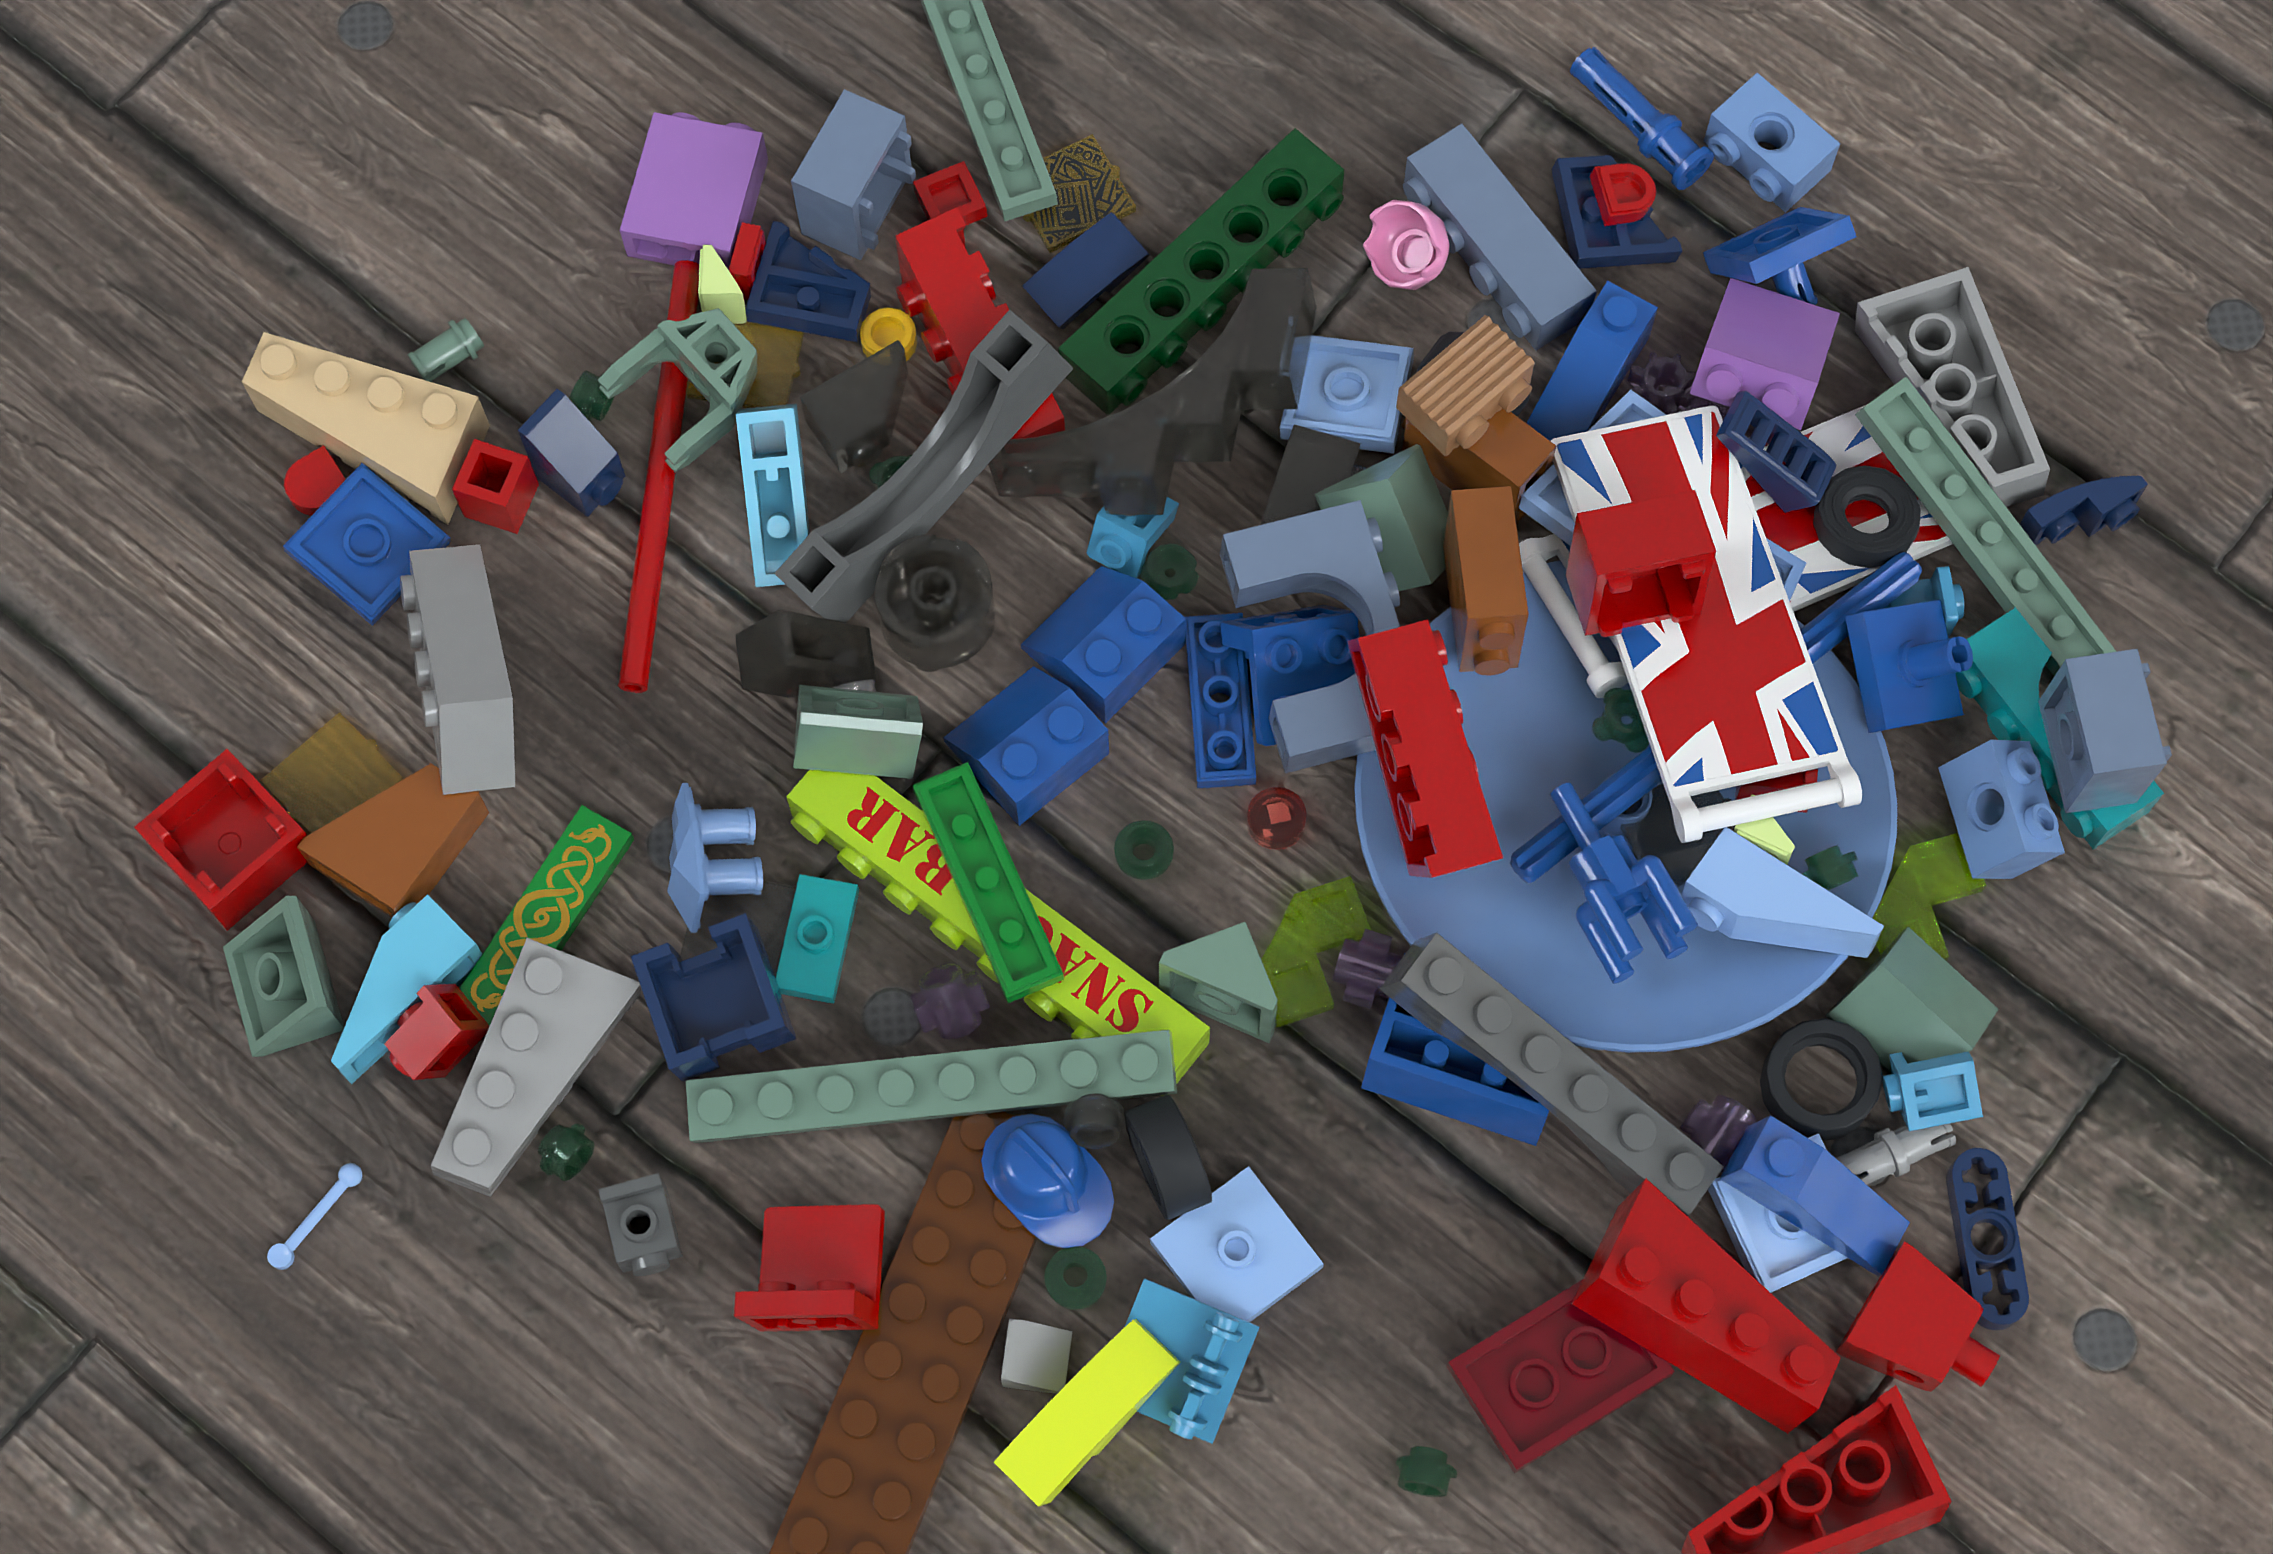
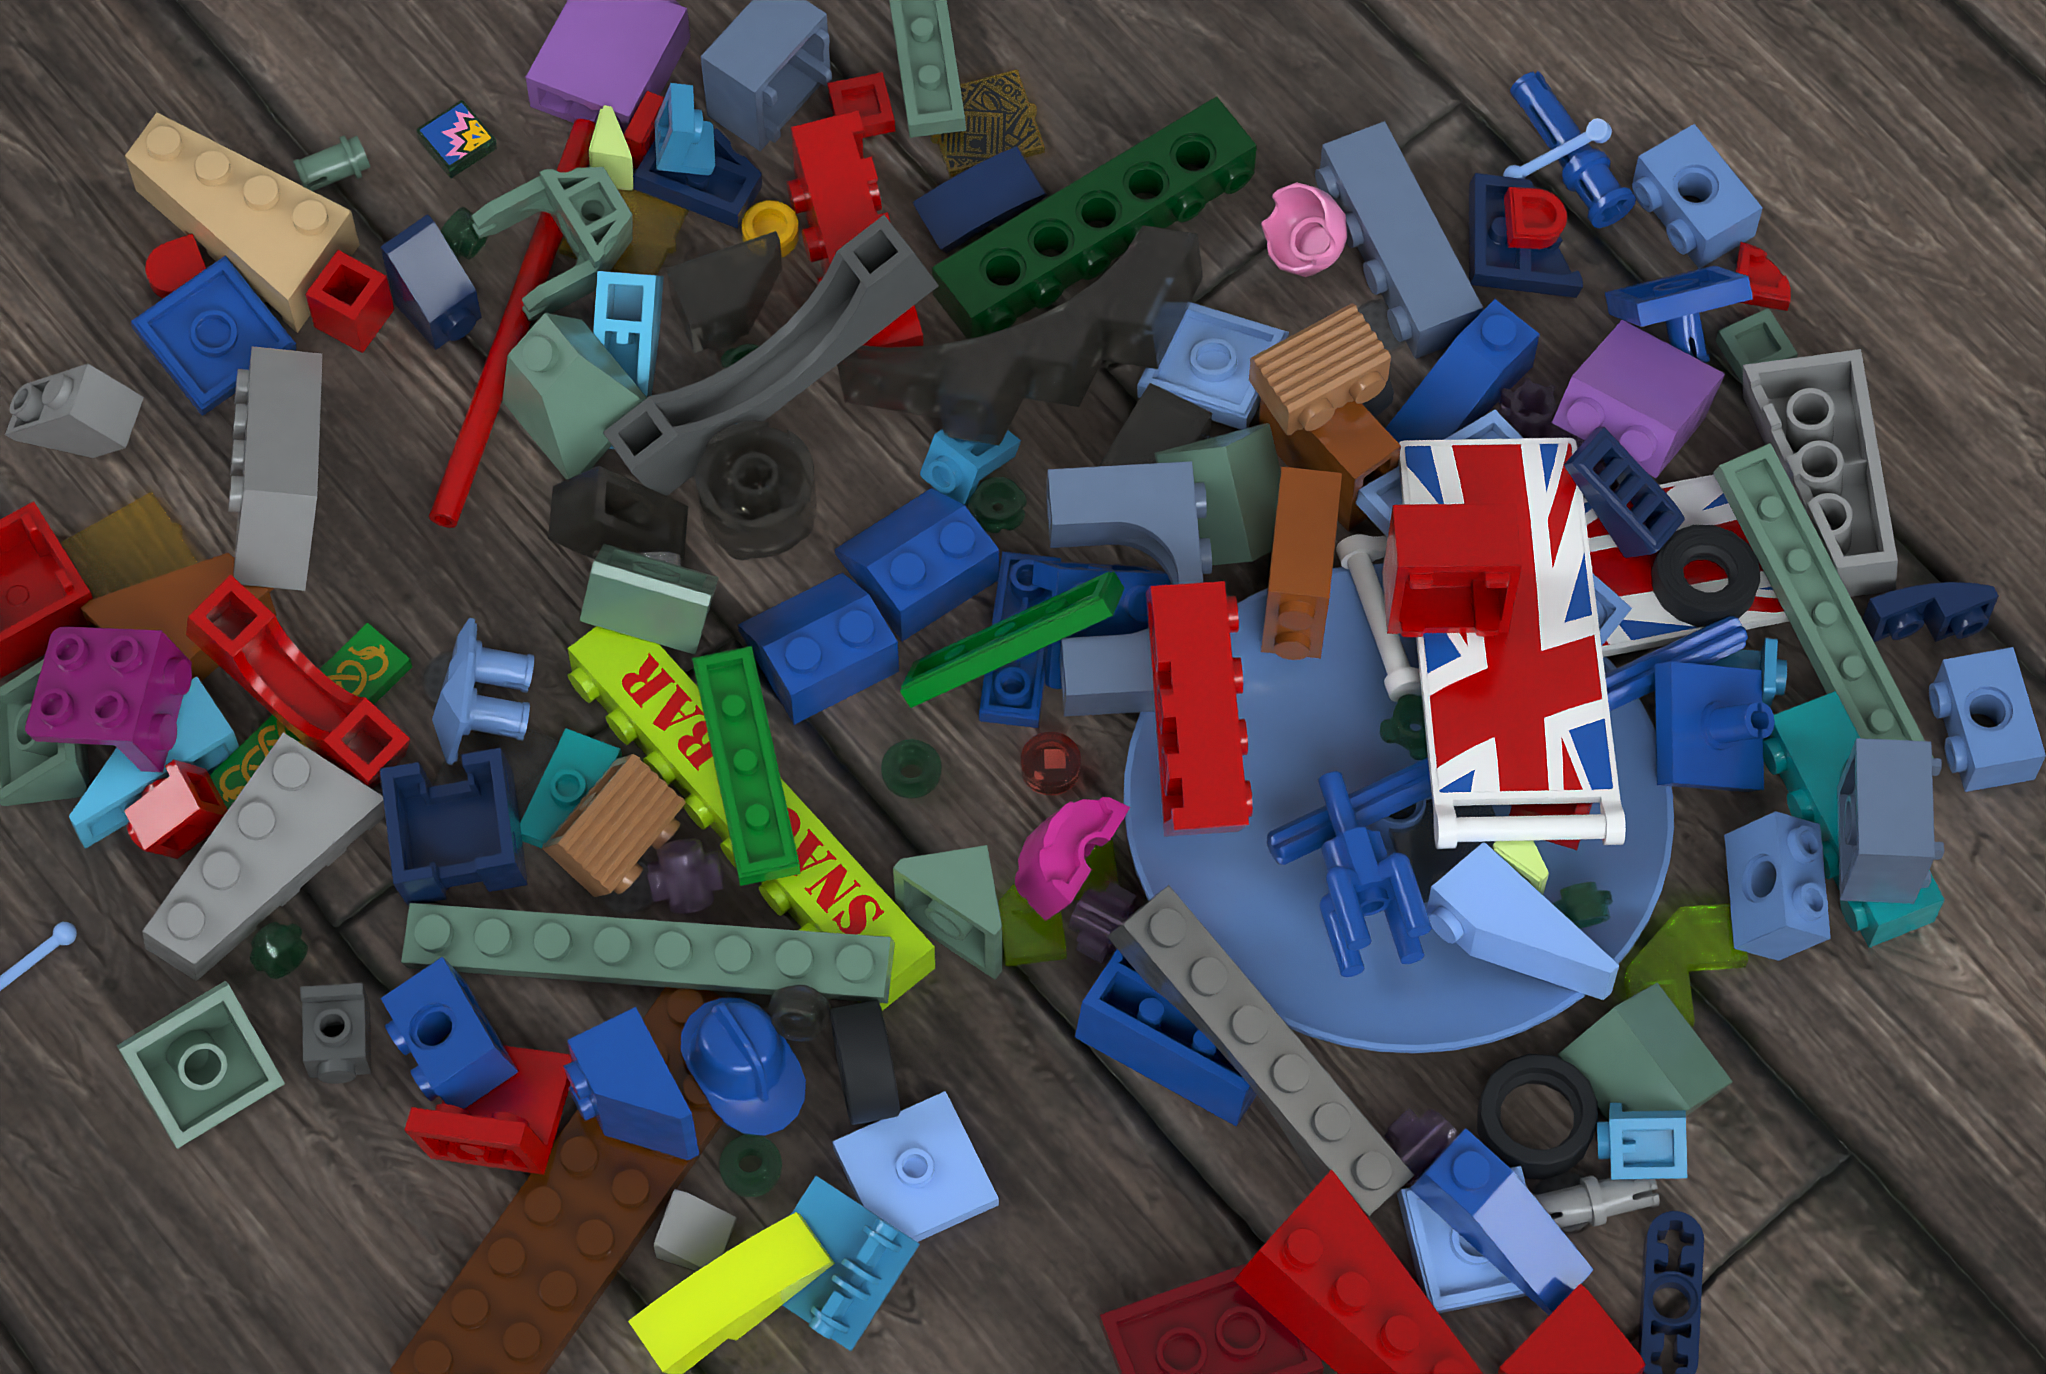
camera: 10 degrees right, 5 degrees down
(247, 648) = (75, 412): none -> light grey slope
(347, 930) = (111, 691): none -> magenta bracket
(500, 873) = (260, 657): none -> red arch
(516, 1285) = (200, 1064): none -> sand green slope
(562, 302) = (456, 139): none -> tile
(730, 539) = (567, 391): none -> sand green slope
(783, 1225) = (472, 1055): none -> blue brick
(787, 260) = (682, 136): none -> dark azure bracket
(871, 966) = (615, 827): none -> medium nougat brick
(948, 1231) = (629, 1088): none -> blue slope
(1221, 707) = (1012, 638): none -> green tile
(1307, 915) = (1055, 852): none -> dark pink cylinder
(1666, 96) = (1596, 131): none -> light blue hinge
(1838, 199) = (1767, 282): none -> red tile
(1857, 277) = (1754, 341): none -> sand green tile
(2163, 575) = (1993, 687): none -> medium blue brick

